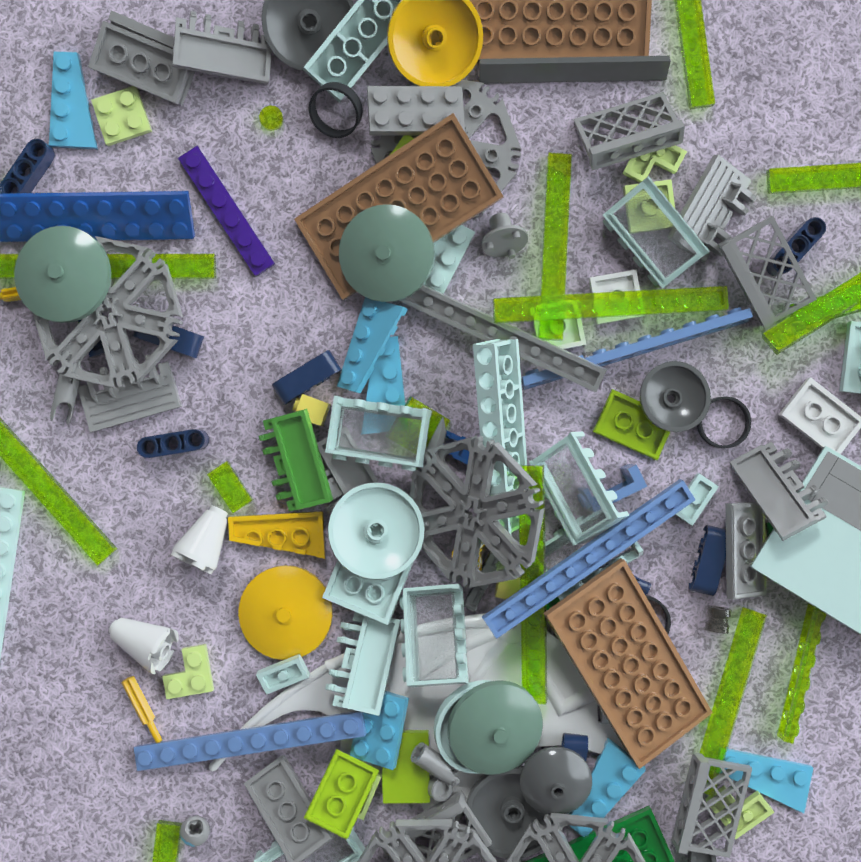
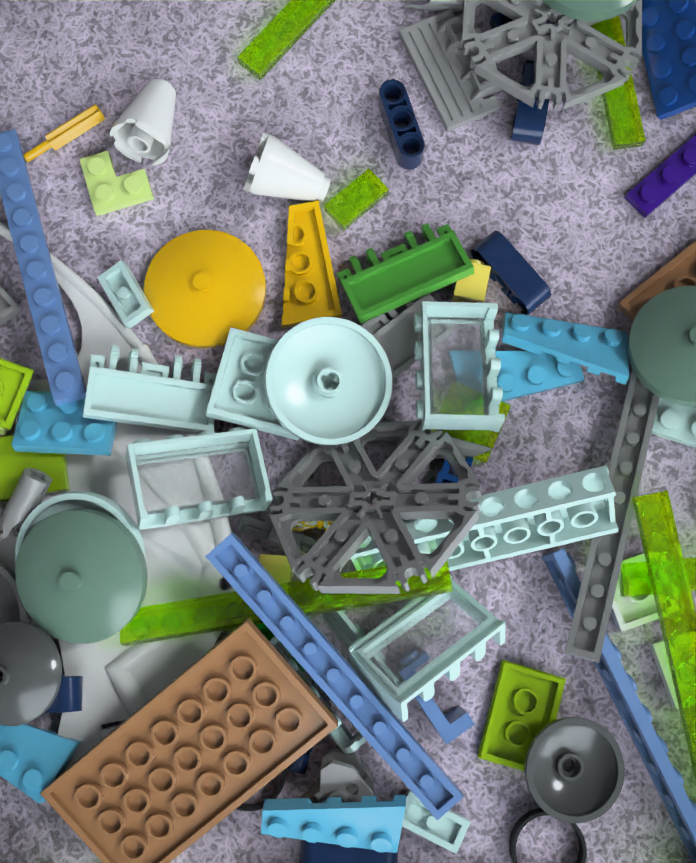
camera: 80 degrees right, 10 degrees down
(665, 560) = (341, 777): none -> light grey hinge
(690, 556) = (346, 824): none -> medium azure wing

